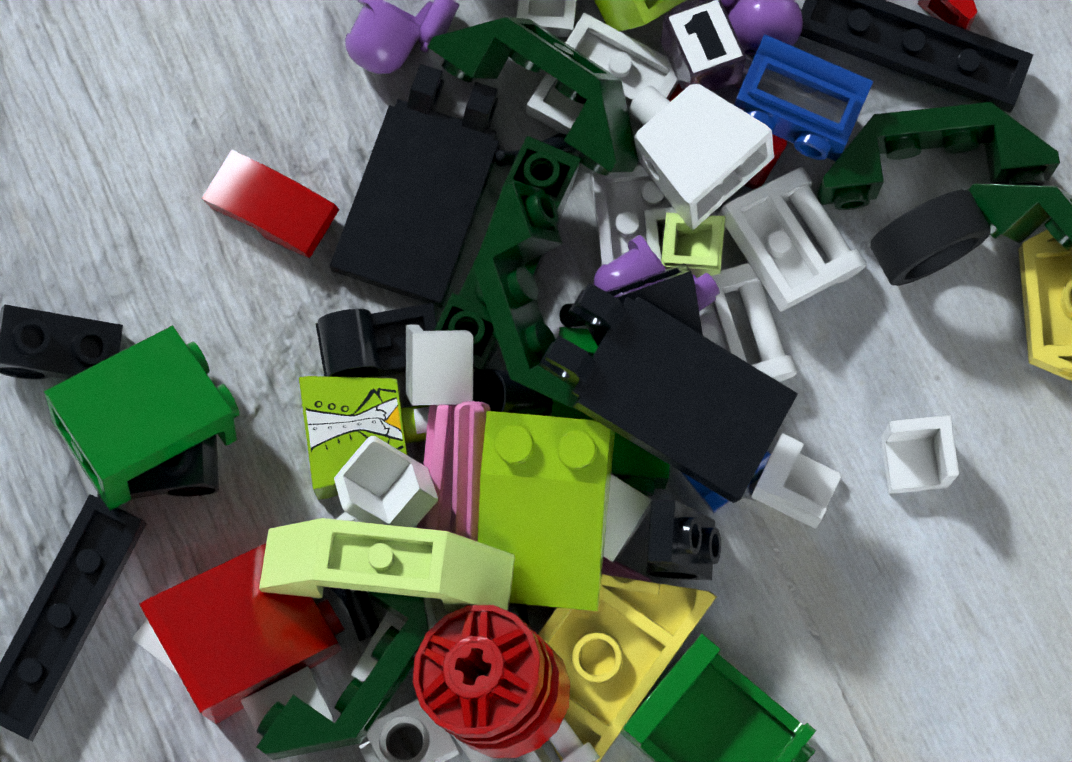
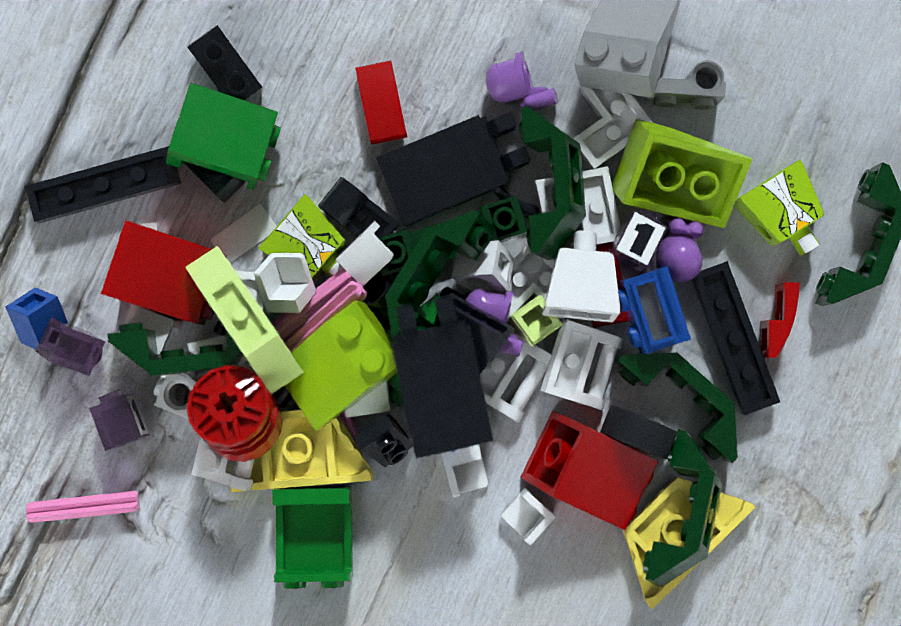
camera: 50 degrees right, 10 degrees up
(274, 495) = (244, 233): none -> white sticker
(587, 245) = (489, 272): none -> white brick
(924, 335) = (589, 470): none -> red slope

